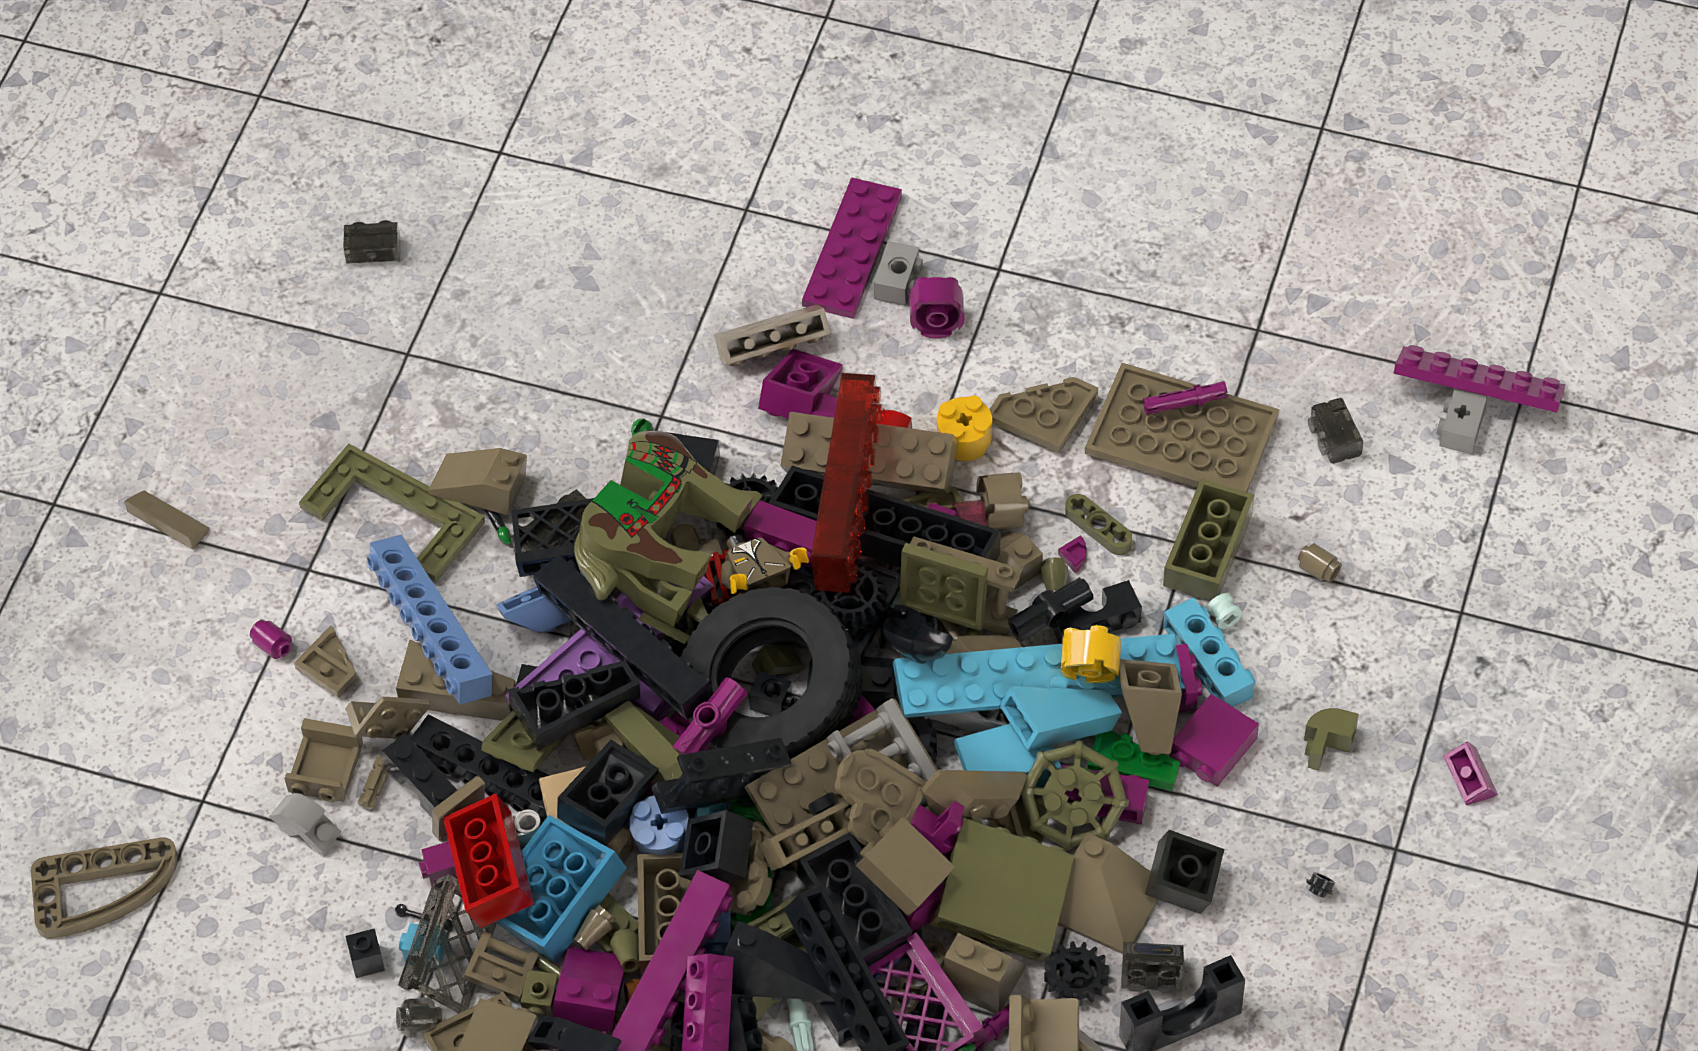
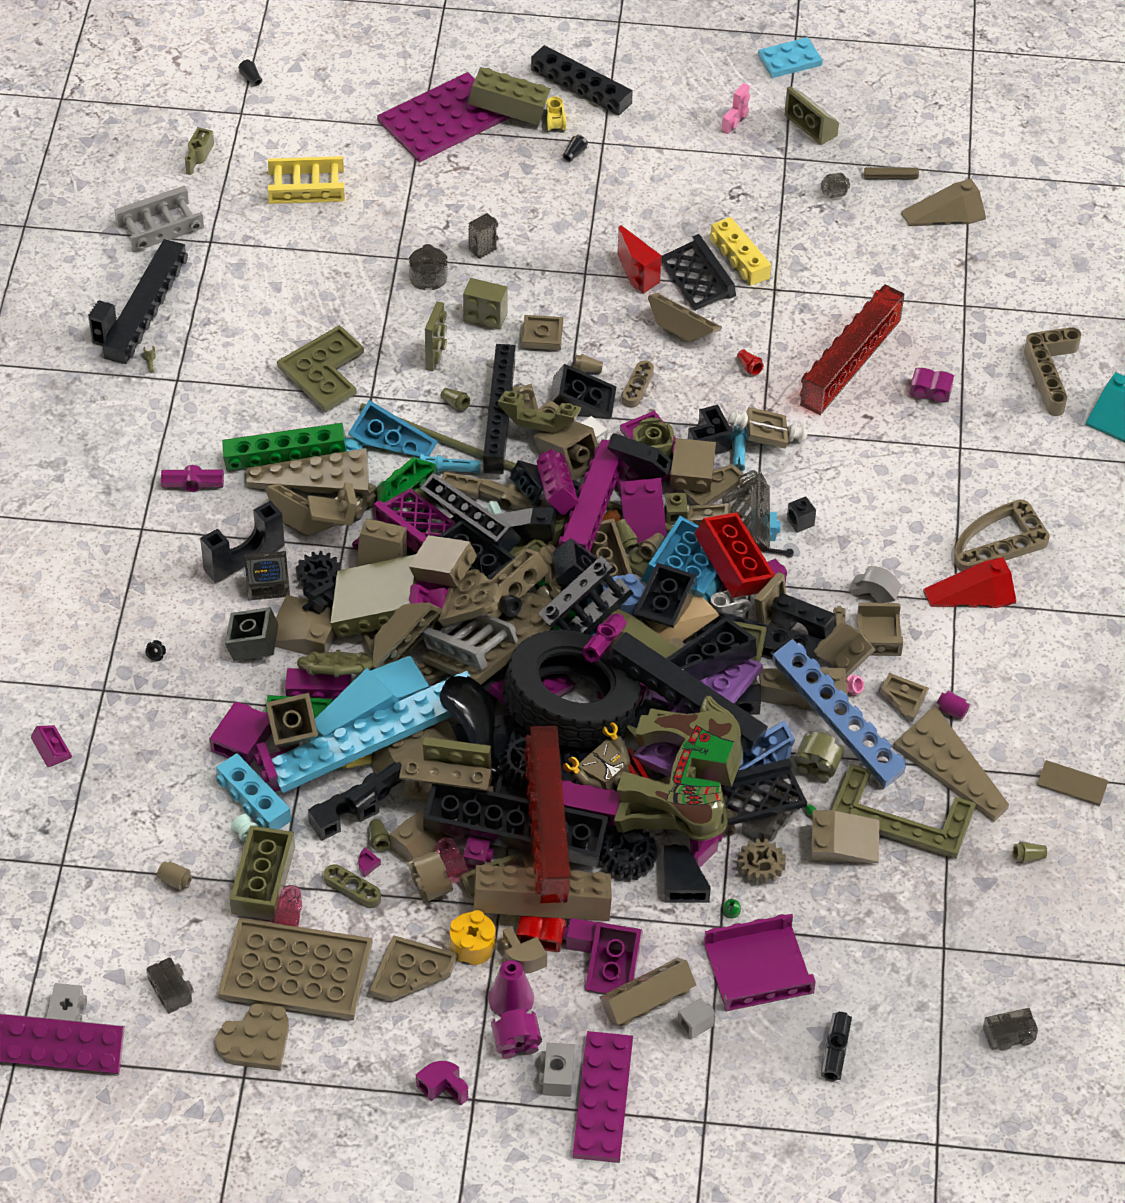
camera: 165 degrees right, 5 degrees down
(164, 807) = (982, 584): none -> red wedge
(260, 438) = (1028, 852): none -> olive cone
(309, 576) = (943, 755): none -> dark tan wing
(387, 687) = (854, 684): none -> bright pink plate
(473, 581) = (818, 756): none -> olive brick
(574, 252) = (834, 1057): none -> black piece
(588, 471) = (761, 861): none -> dark tan gear
(631, 356) = (757, 962): none -> magenta panel
(664, 627) = (657, 698): olive sticker -> none
(724, 304) = (696, 1018): none -> light grey brick
(910, 400) = (528, 954): none -> dark tan brick
(931, 359) = (510, 989): none -> magenta cone
(1034, 283) = (439, 1077): none -> magenta brick
(1084, 920) = (318, 596): none -> black hips
(1090, 654) = (337, 725): yellow brick -> none
(1179, 500) = (289, 907): none -> clear pink piece
(1191, 396) = (295, 982): magenta pin -> none
(1242, 361) = (256, 1039): none -> dark tan plate
(1330, 729) = (157, 753): olive brick -> none

